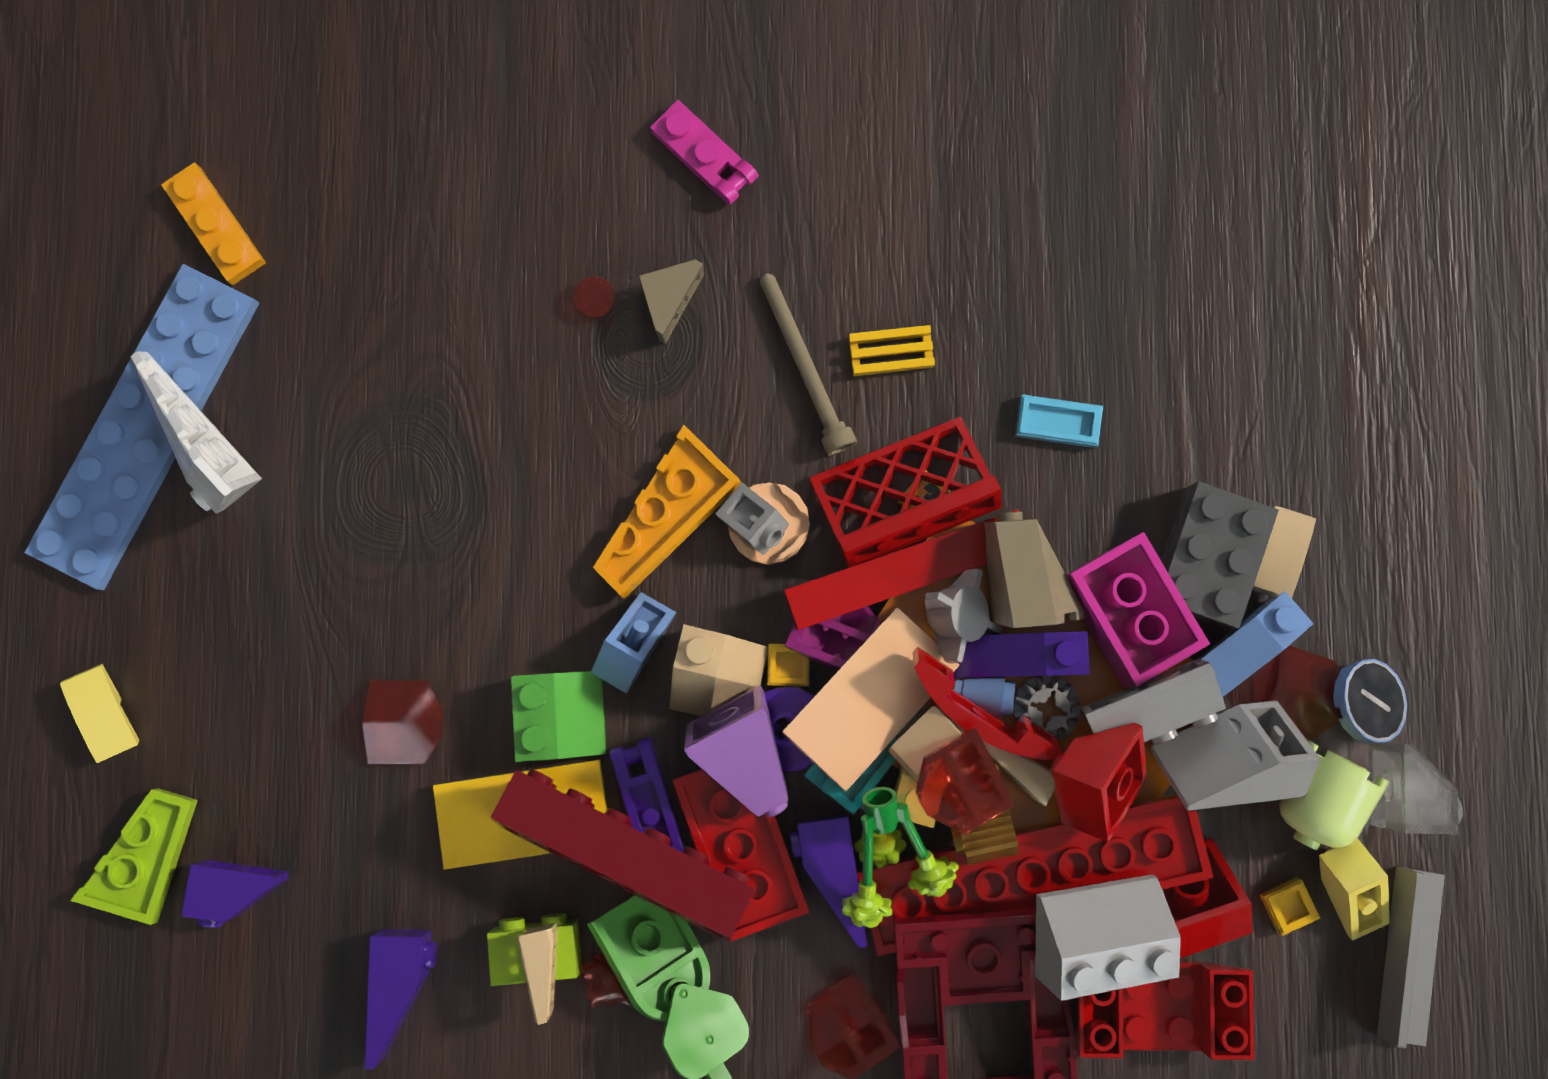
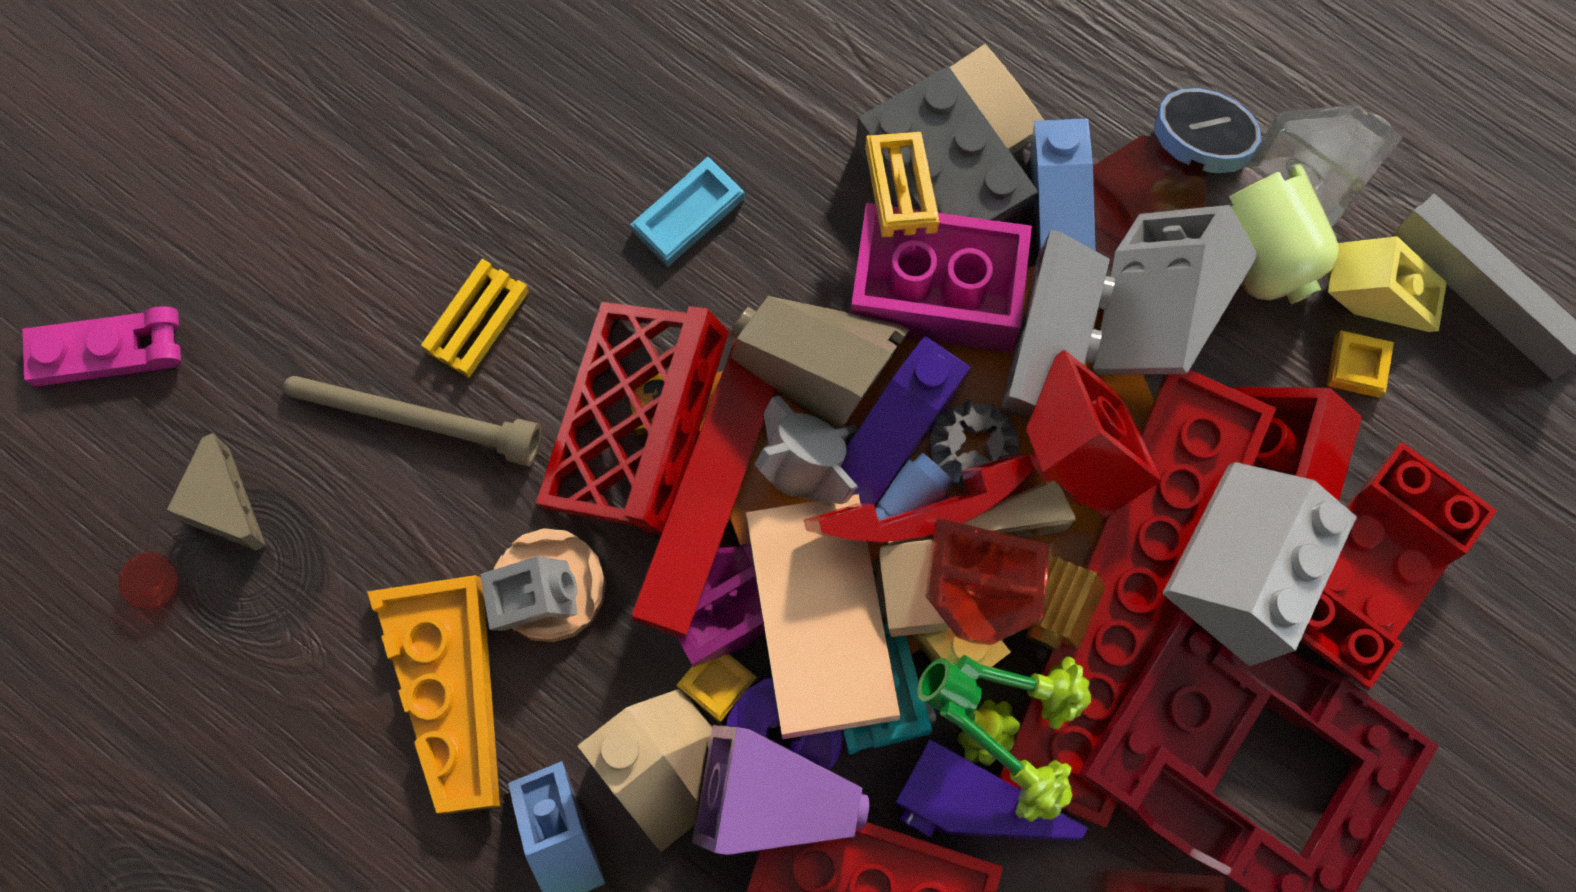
camera: 55 degrees left, 10 degrees down
(1150, 567) = (906, 219): none -> yellow tile

